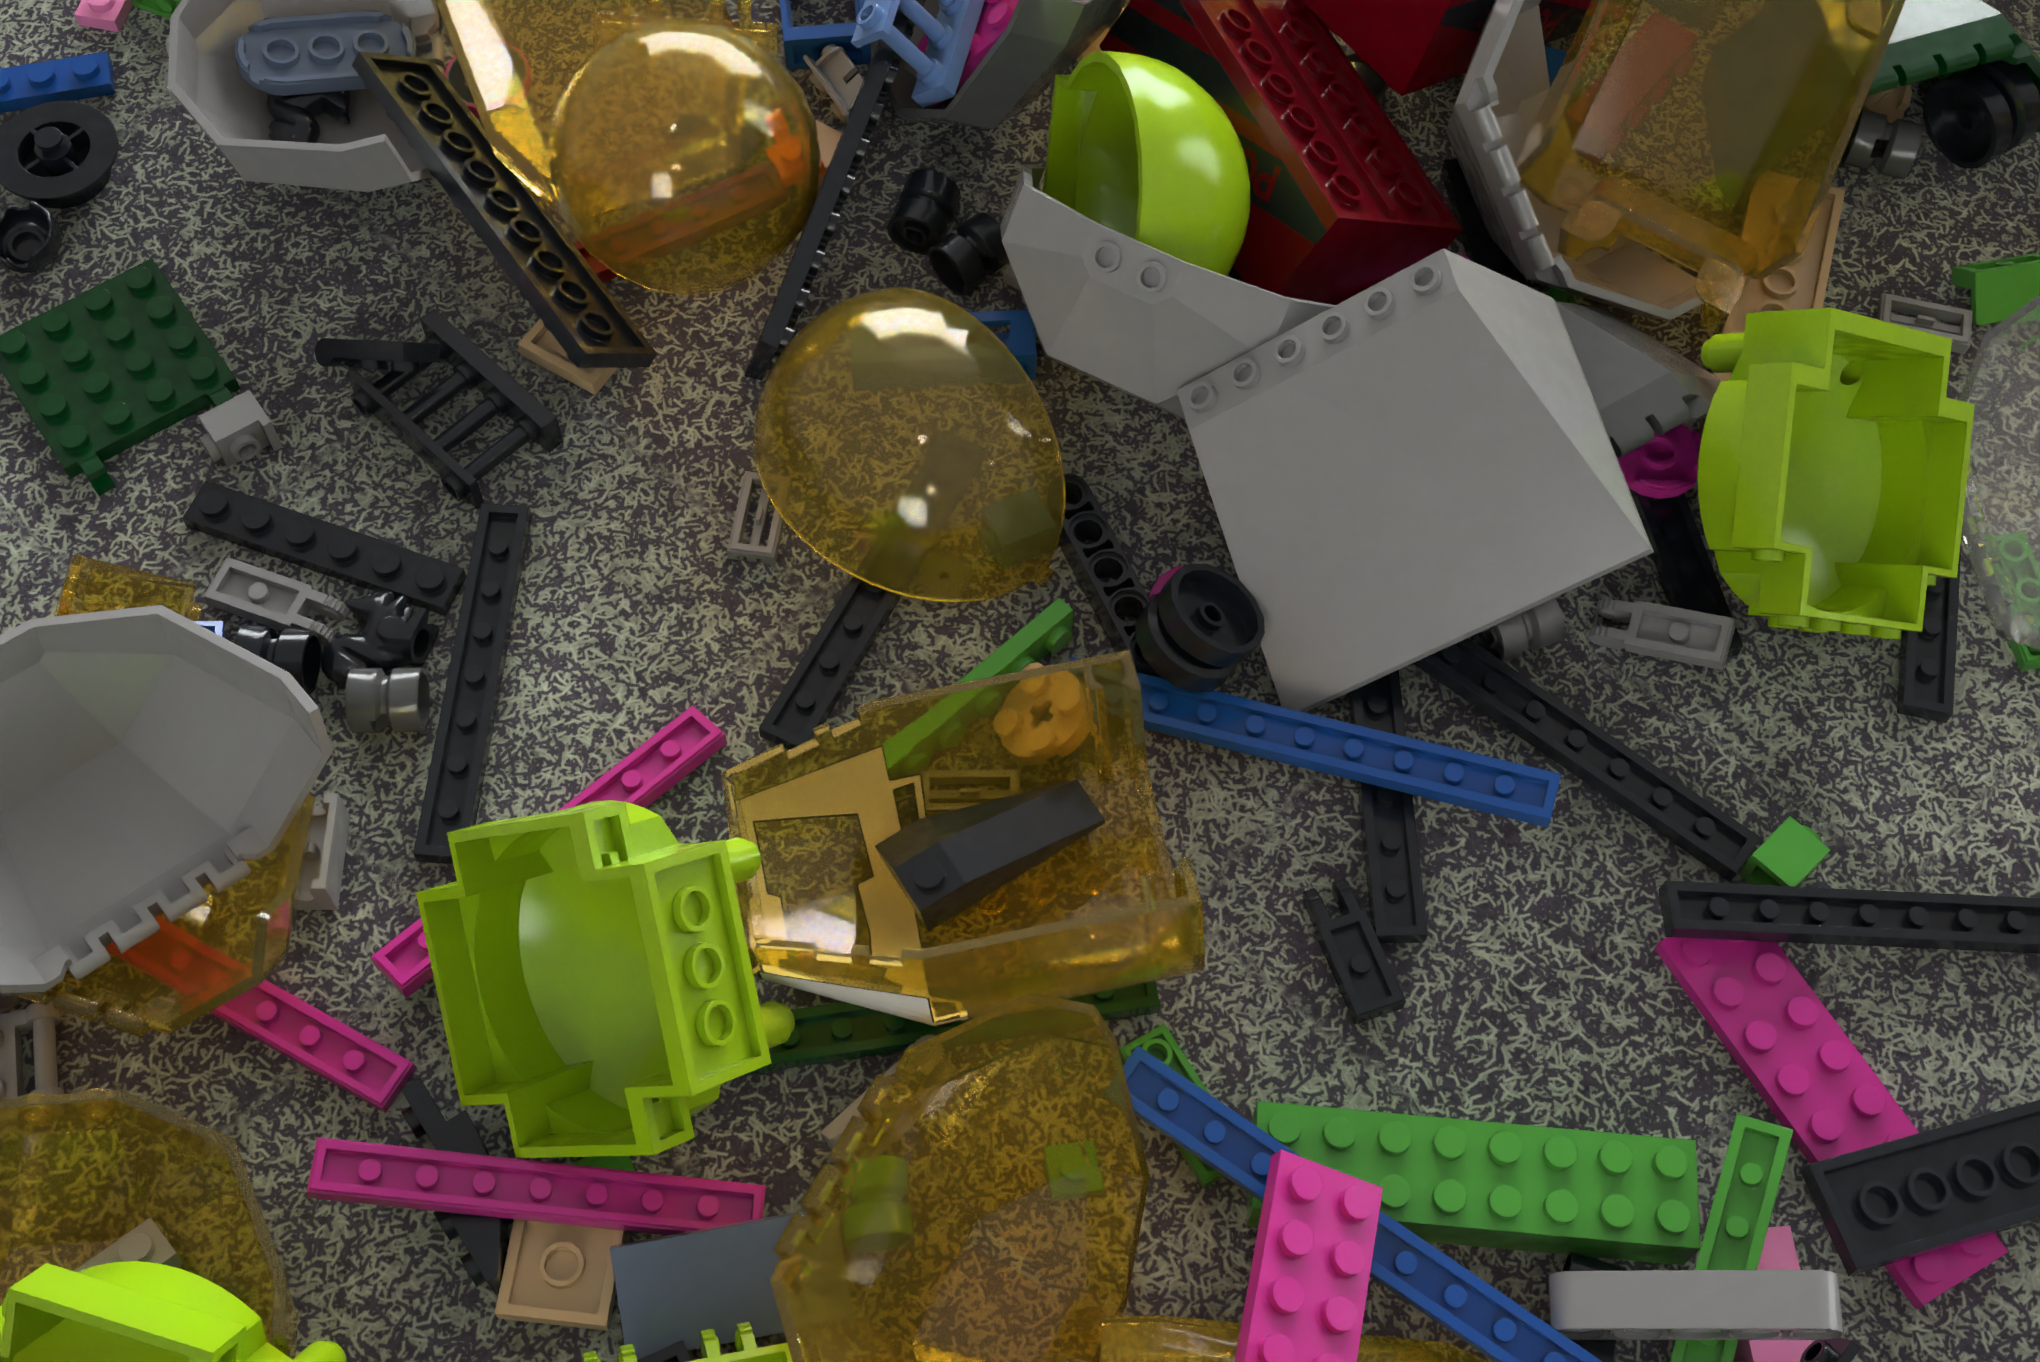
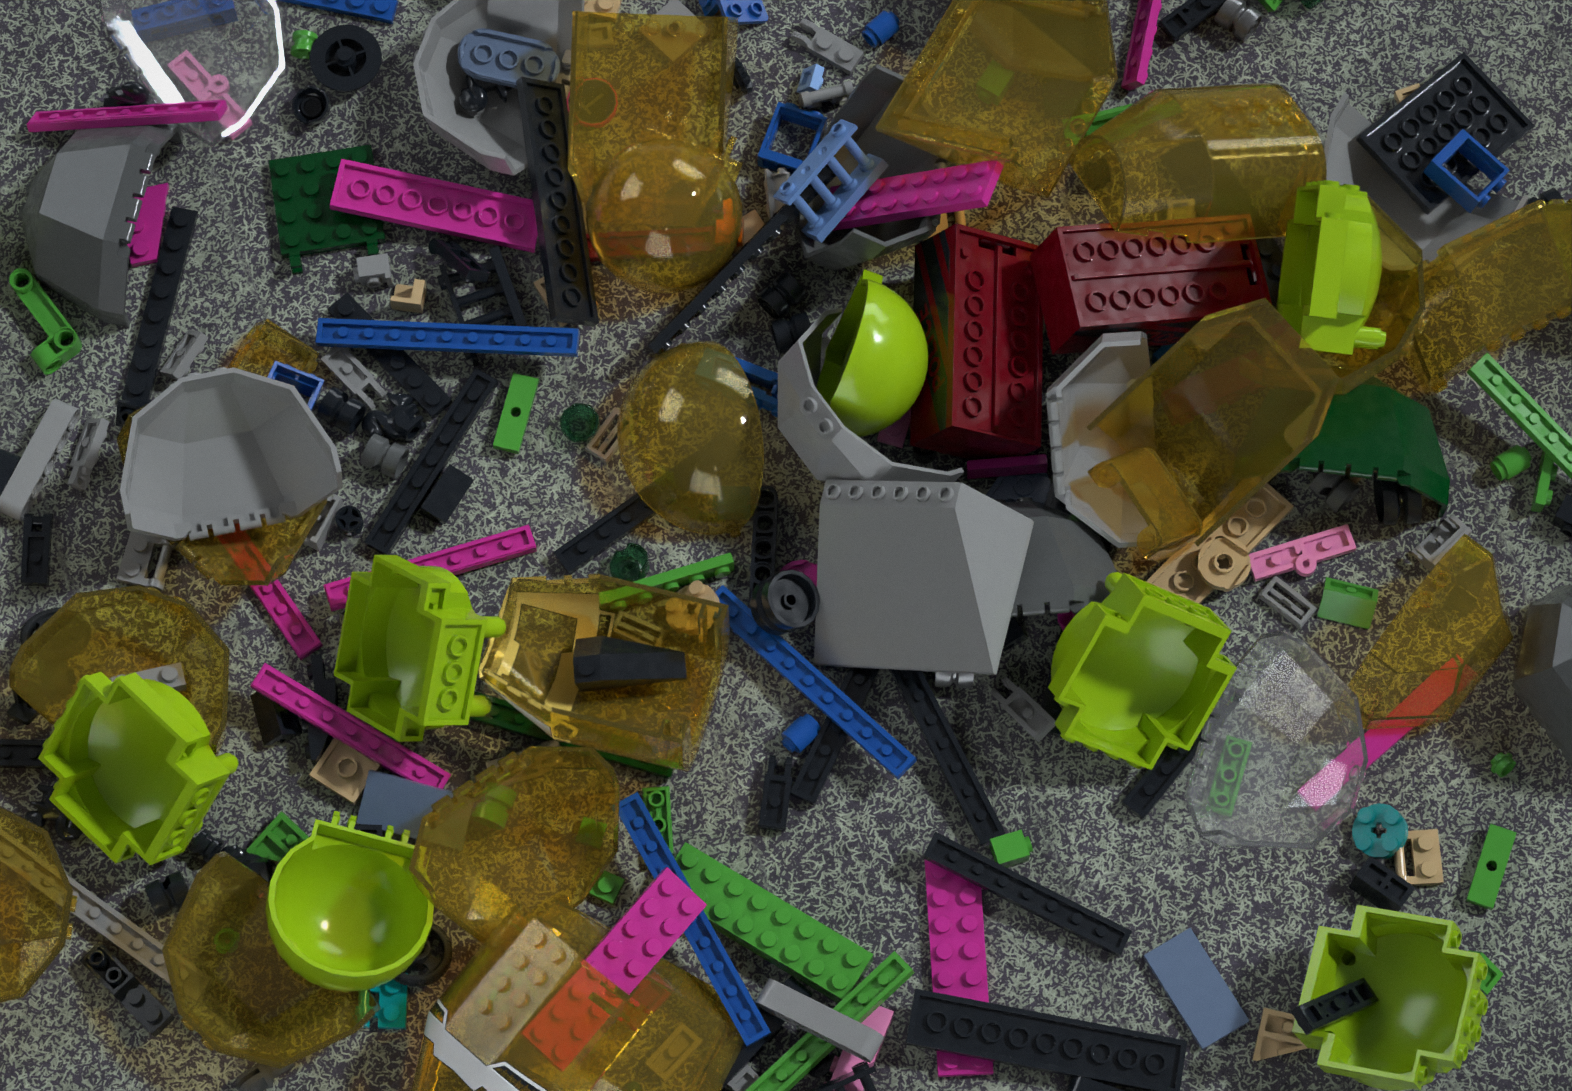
camera: 30 degrees right, 10 degrees up
(299, 295) = (435, 205): none -> dark pink plate
(320, 450) = (409, 297): none -> tan panel
(363, 823) = (348, 515): none -> black wheel
(382, 1241) = (274, 720): none -> black hinge
(408, 468) = (448, 337): none -> blue plate
(526, 718) = (446, 495): none -> black hinge
(580, 524) = (518, 399): none -> bright green tile
(701, 512) = (580, 422): none -> clear green hair
(899, 675) = (630, 563): none -> clear green hair
(1157, 1256) = (607, 887): none -> bright green plate
(1334, 833) = (800, 733): none -> blue brick
(1815, 275) = (1225, 578): none -> tan plate
(1897, 250) = (1302, 553): none -> bright pink hinge

